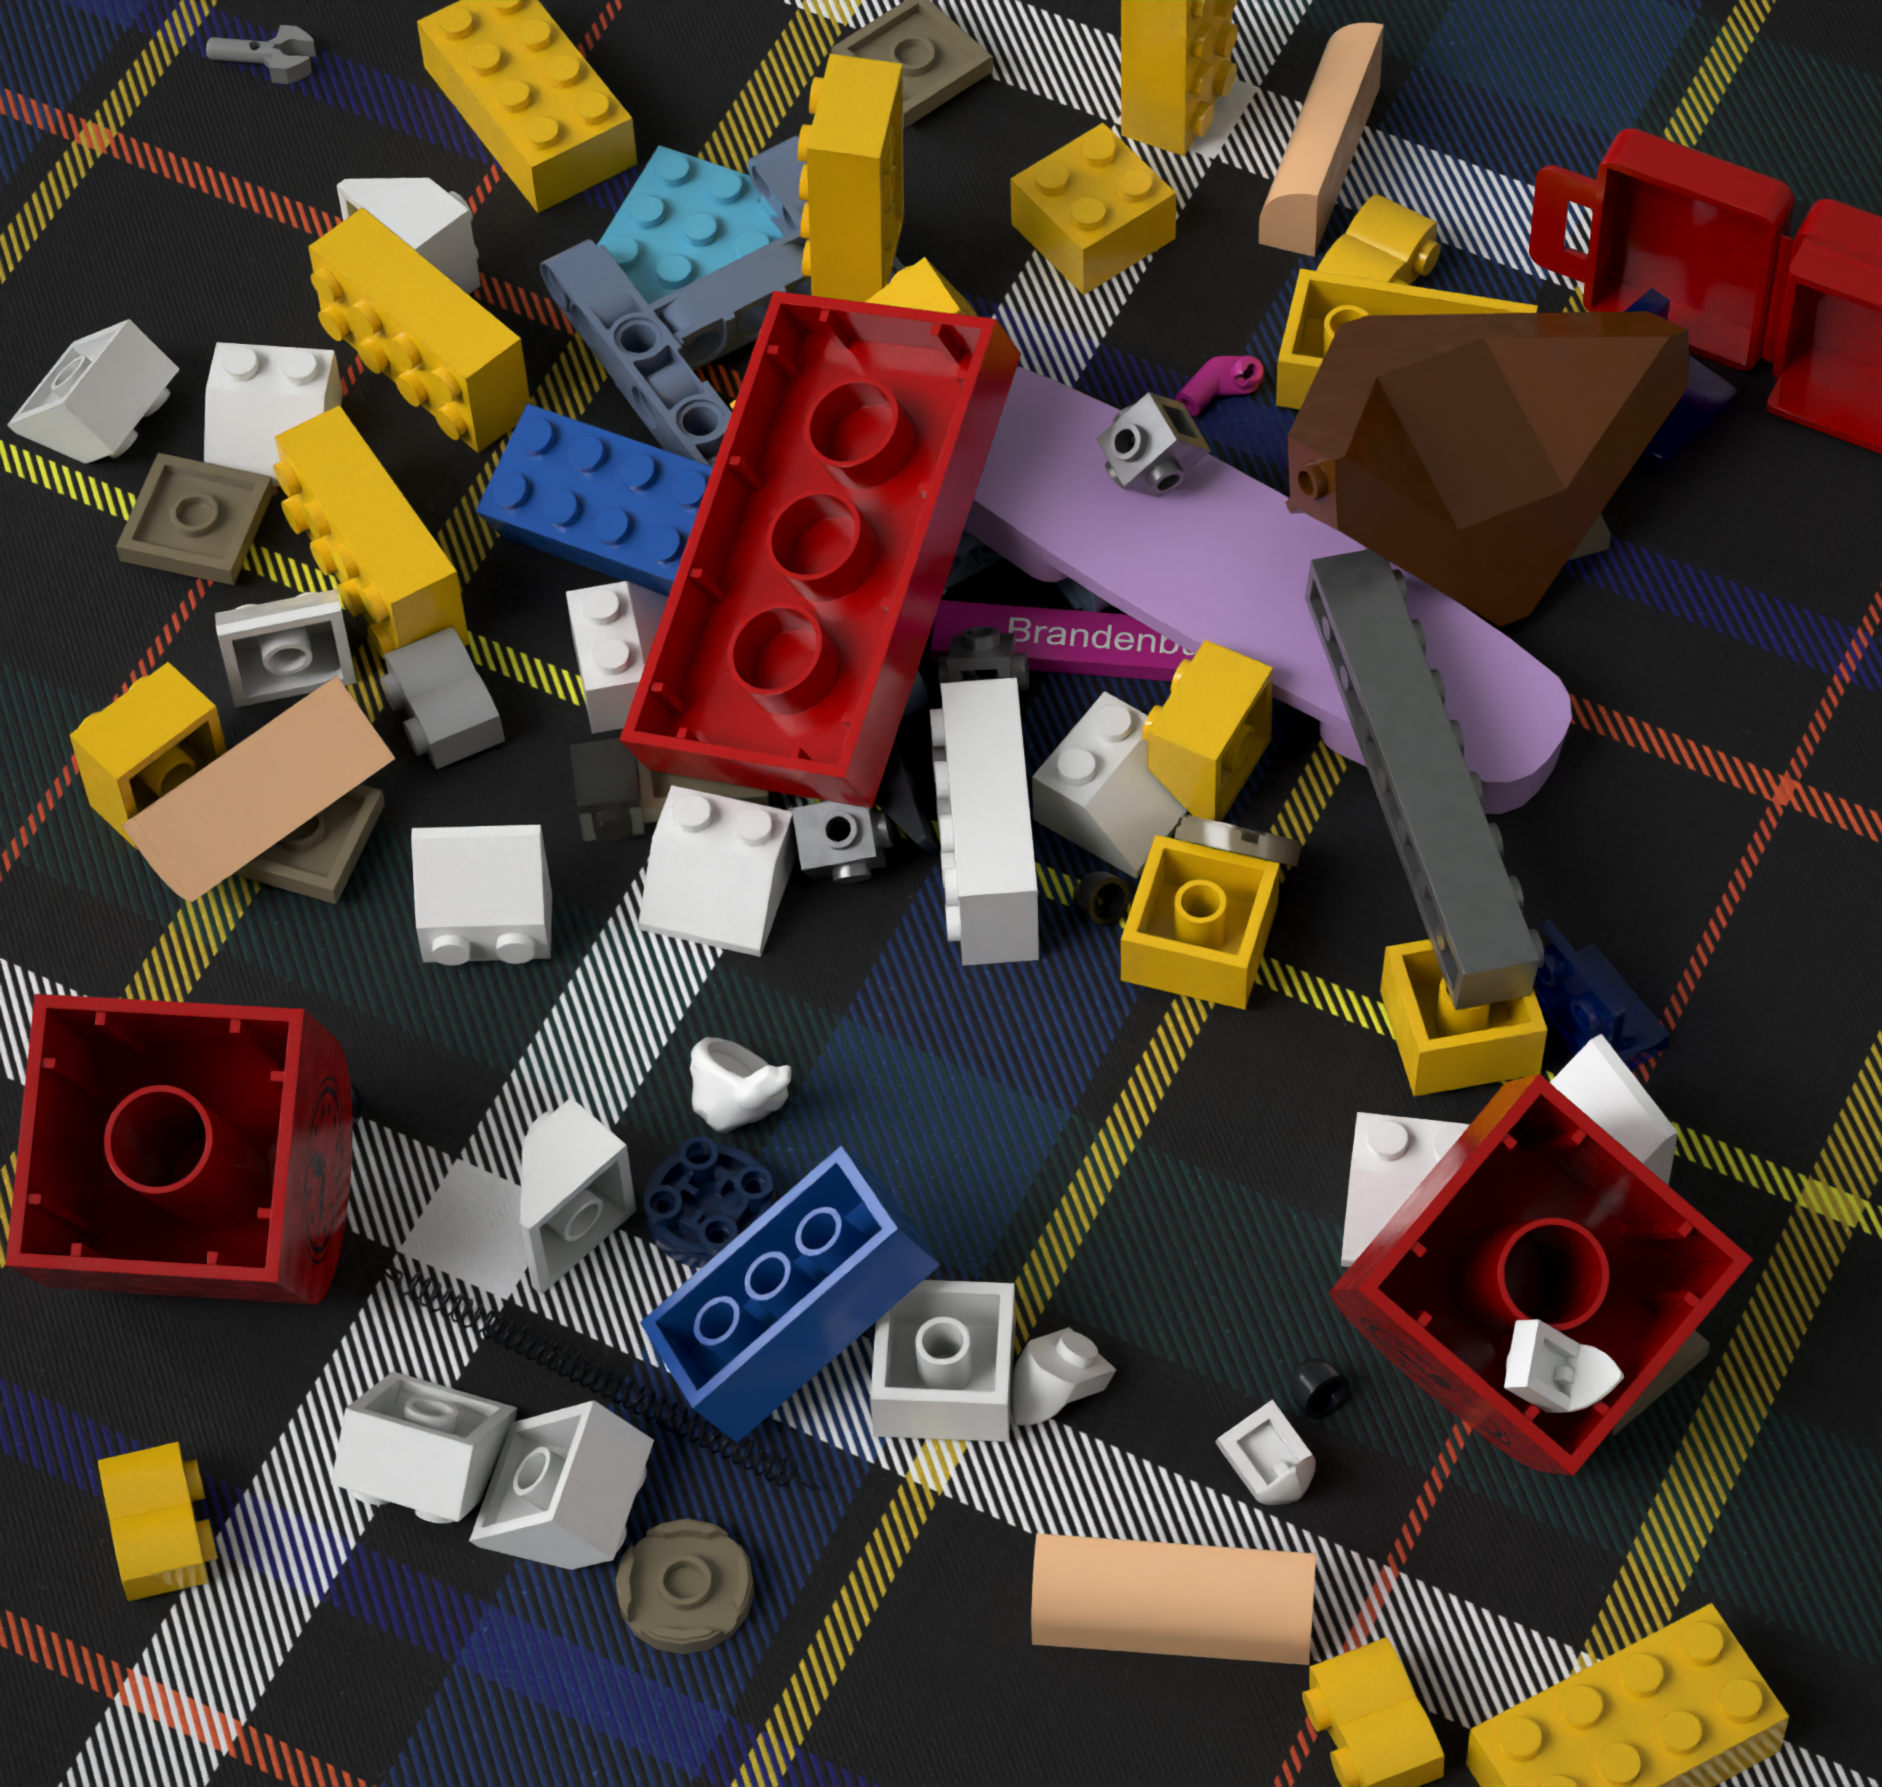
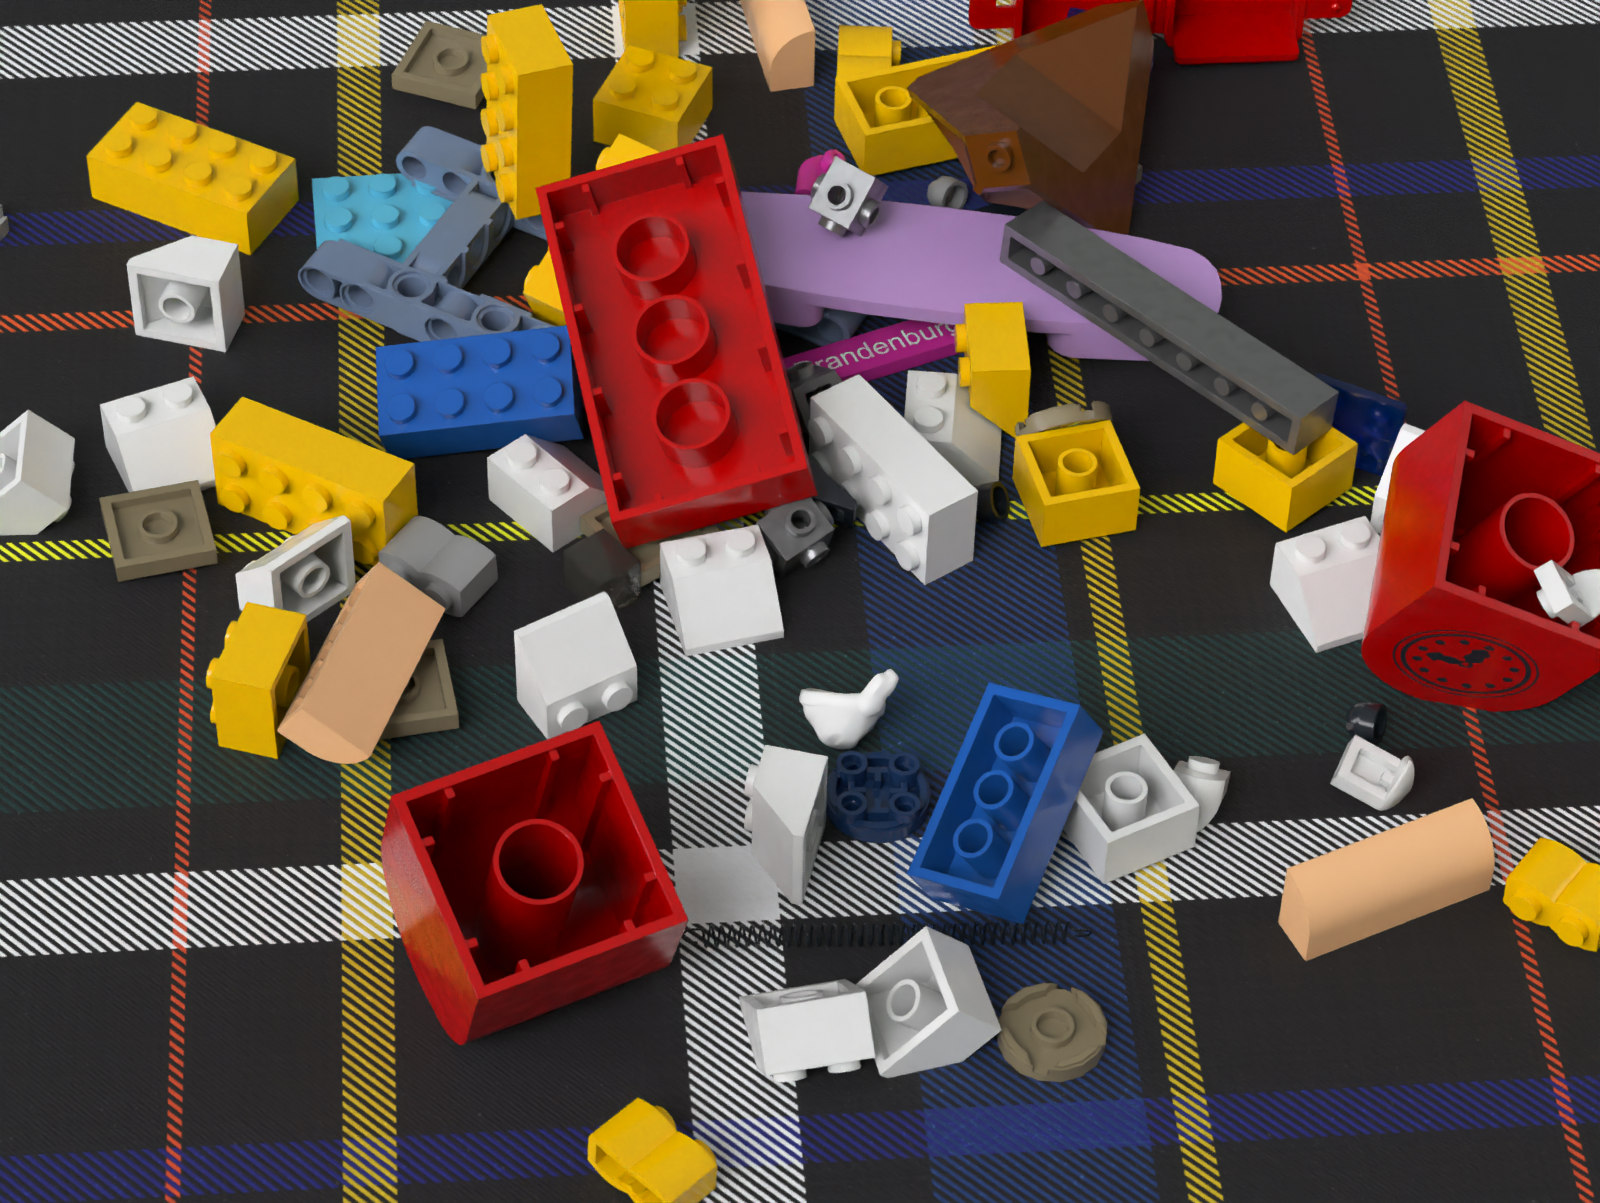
camera: 35 degrees left, 10 degrees down
(419, 330) = (243, 342): yellow brick -> none

